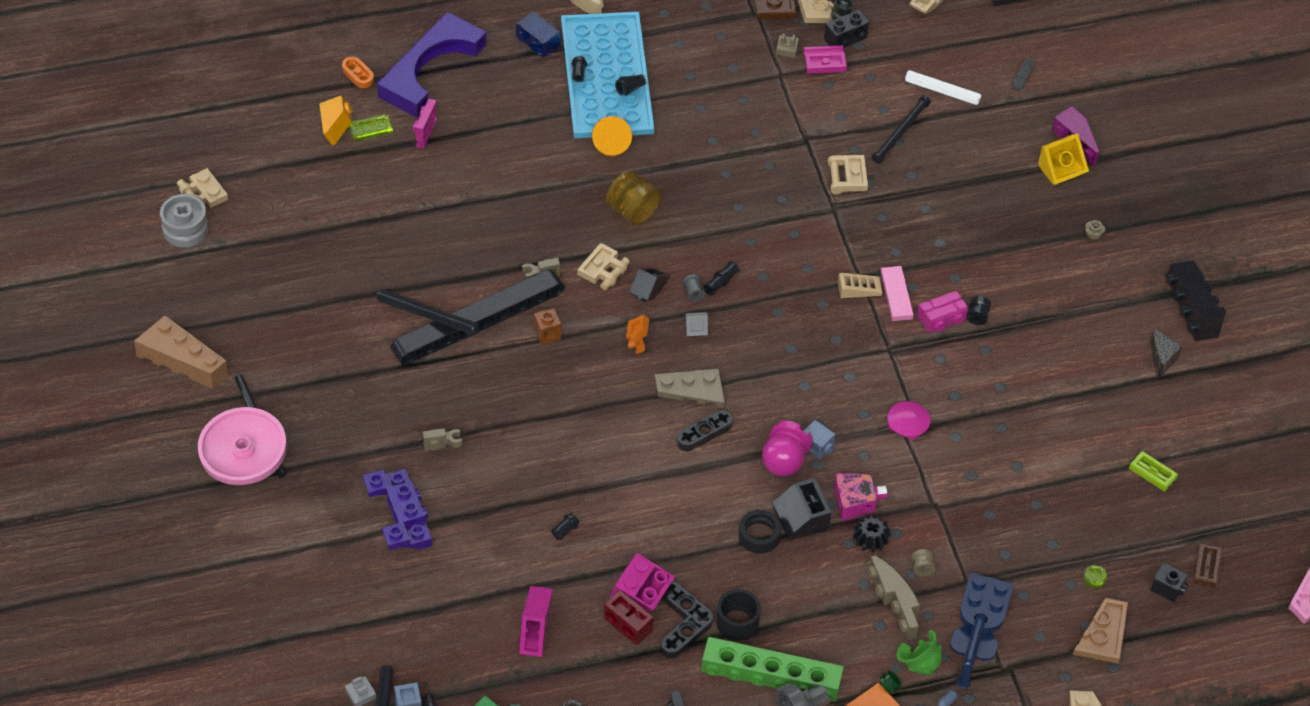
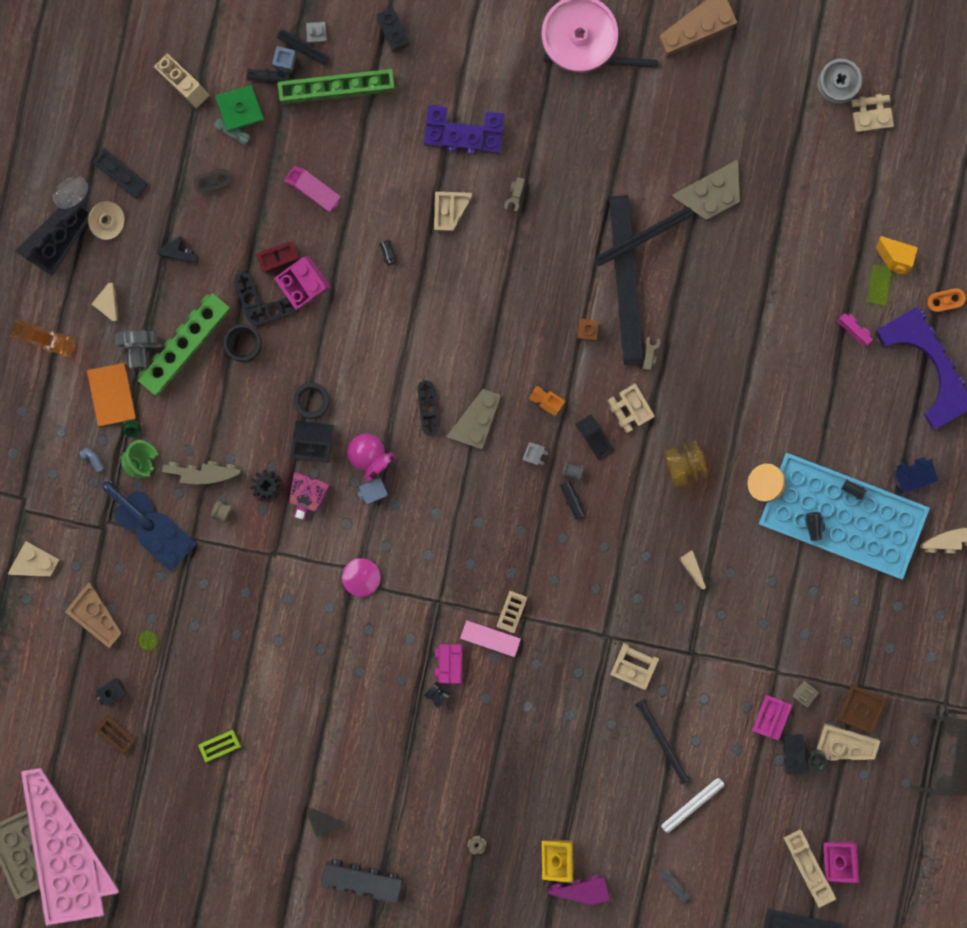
camera: 120 degrees right, 35 degrees up
(322, 616) = (392, 29): none -> black brick
(349, 284) = (712, 193): none -> dark tan wing
(413, 640) = (336, 86): none -> bright green brick
(489, 491) = (449, 209): none -> tan wing
(726, 162) = (690, 564): none -> tan slope

